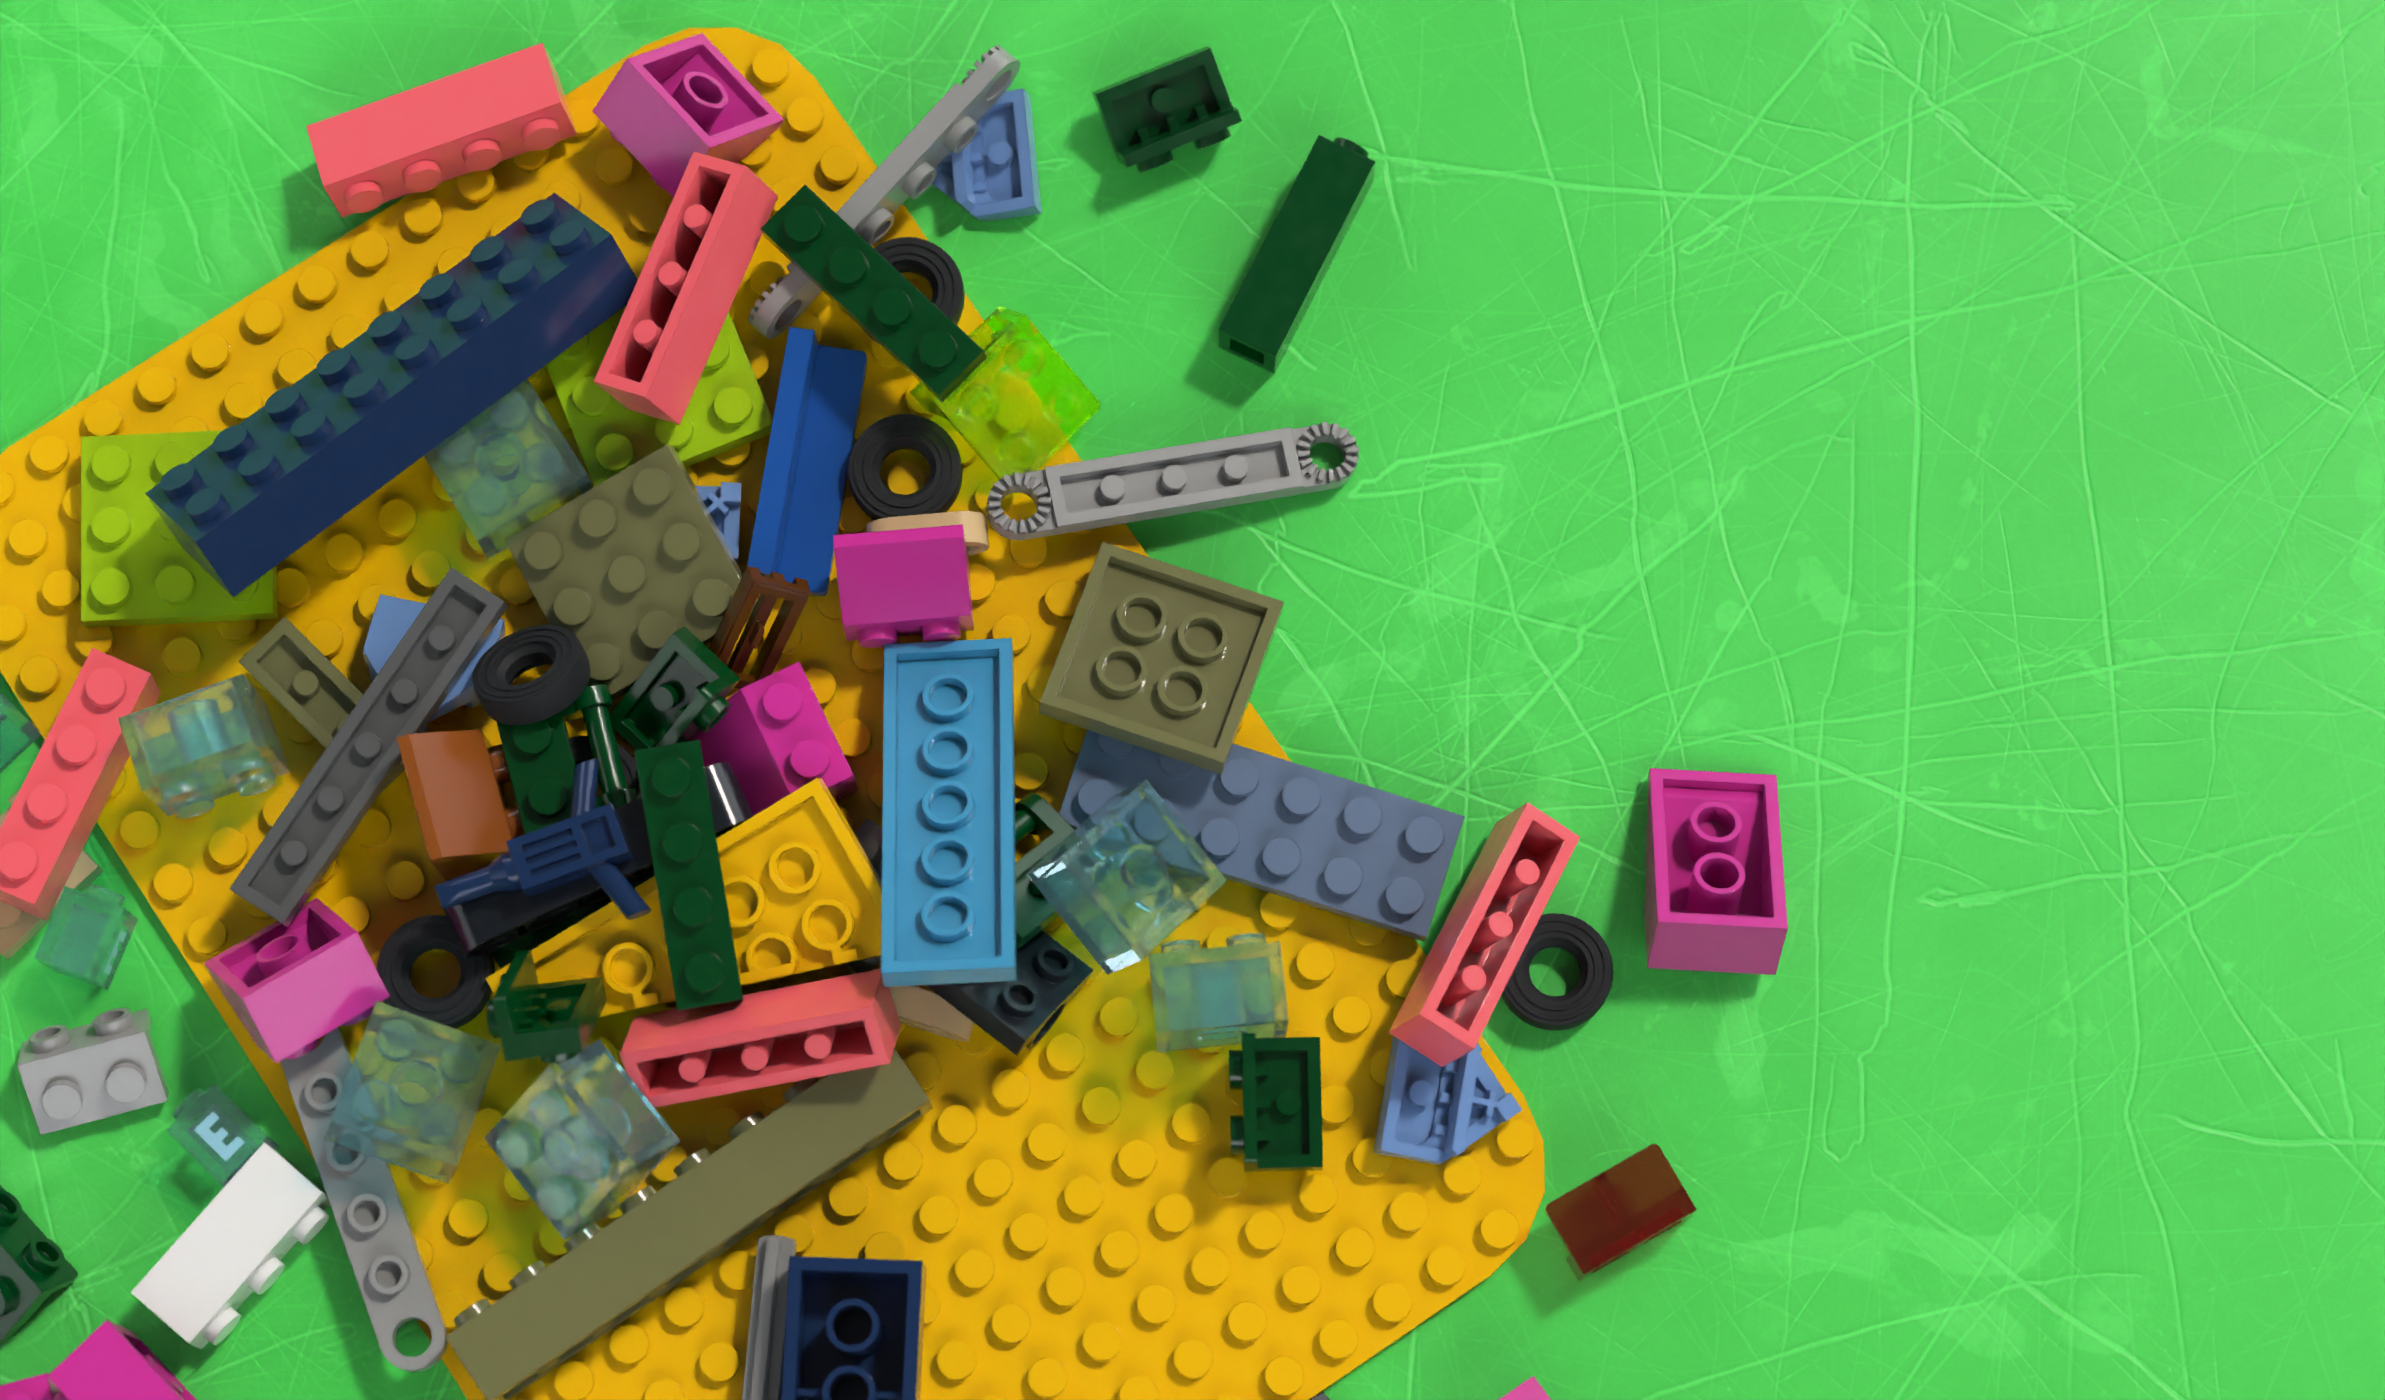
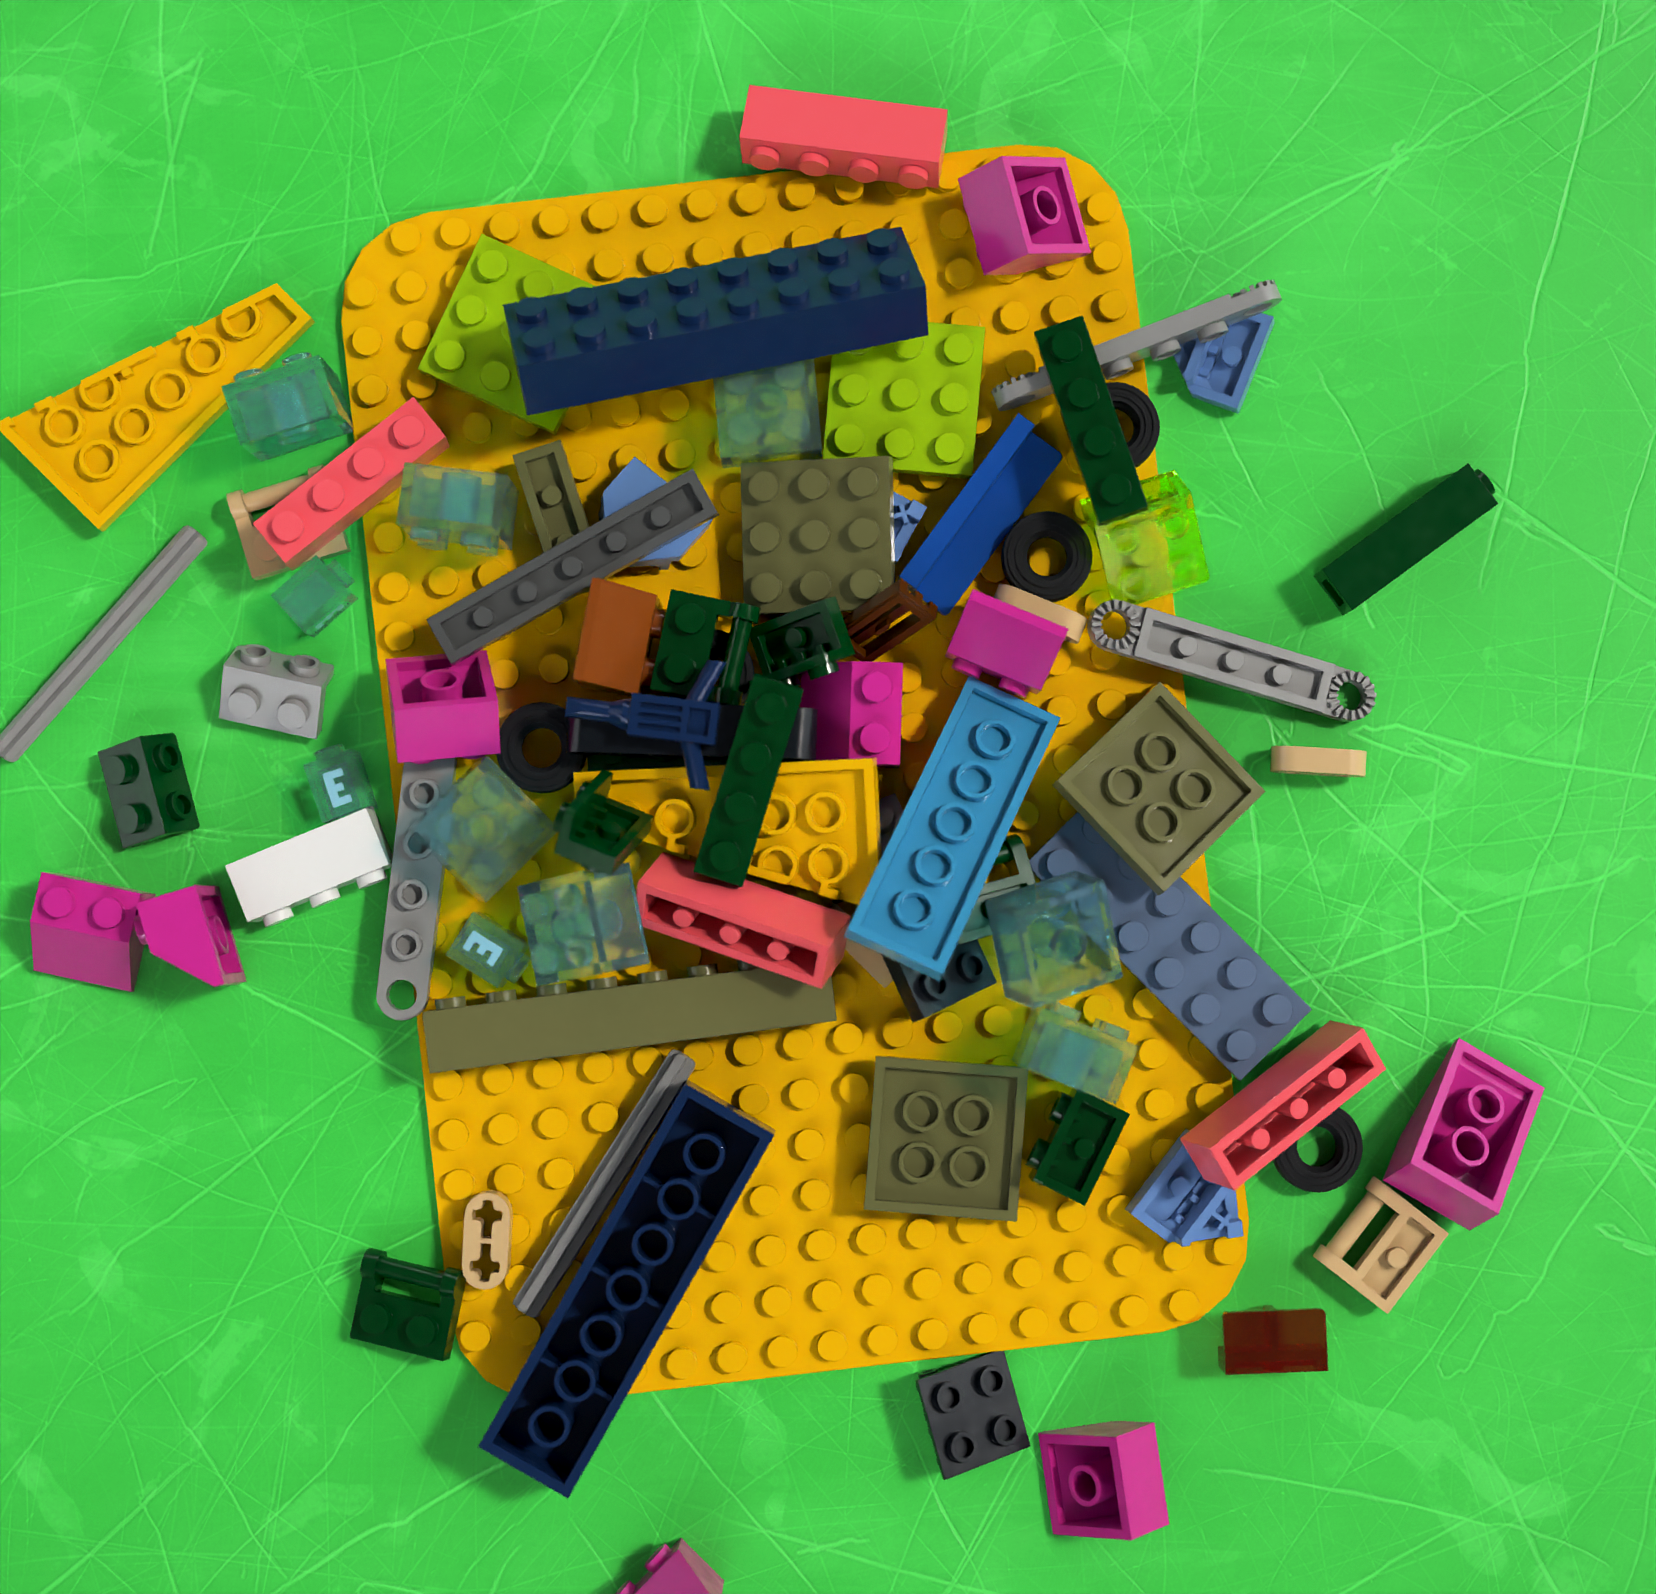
camera: 30 degrees right, 10 degrees up
(490, 1231) = (490, 950): none -> clear light blue brick
(538, 698) = (710, 596): black tyre -> none
(686, 288) = (960, 348): coral brick -> none
(1125, 1174) = (946, 1138): none -> olive plate
(1166, 110) = (1367, 386): dark green bracket -> none
(1328, 543) = (1318, 761): none -> tan beam
(1706, 1049) = (1395, 1253): none -> tan plate

